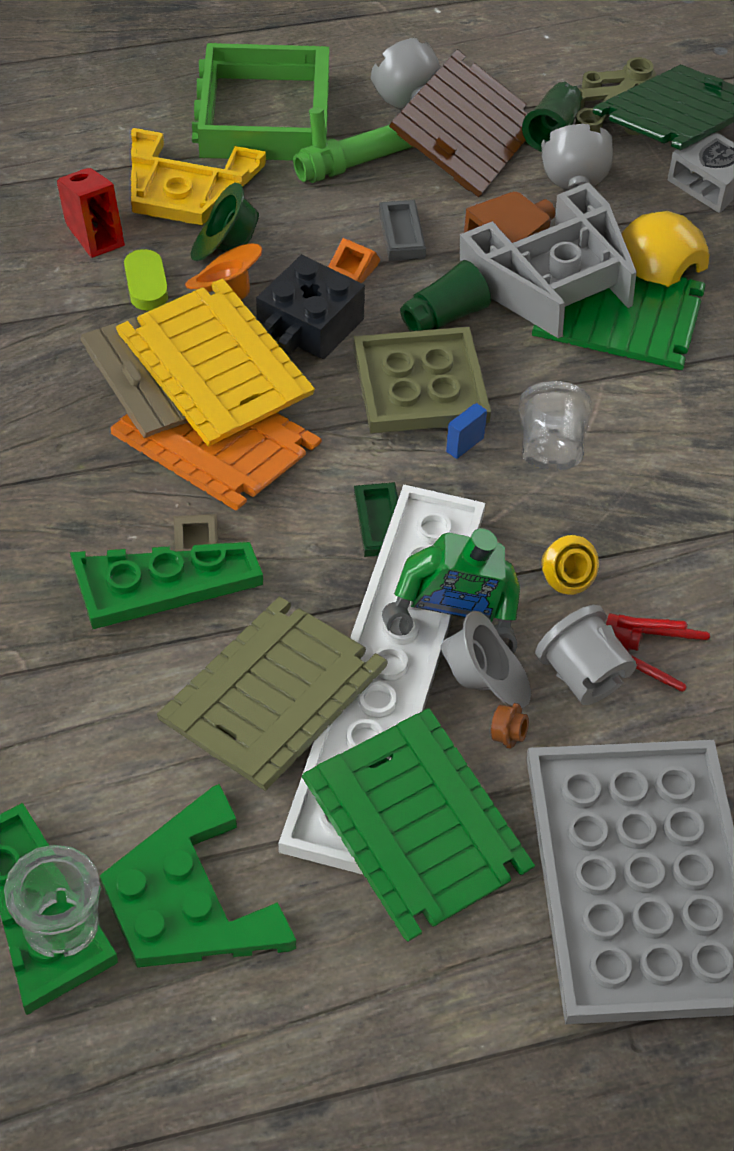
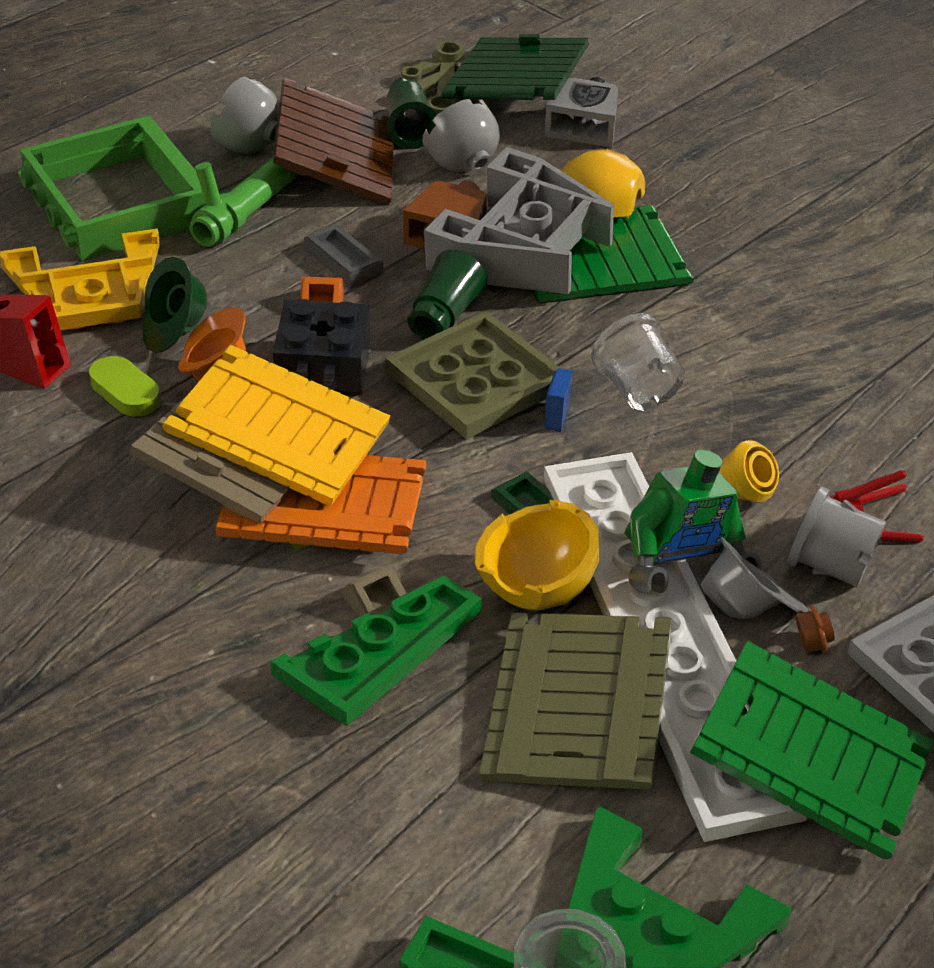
camera: 30 degrees left, 10 degrees down
(328, 558) = (539, 555): none -> yellow cylinder

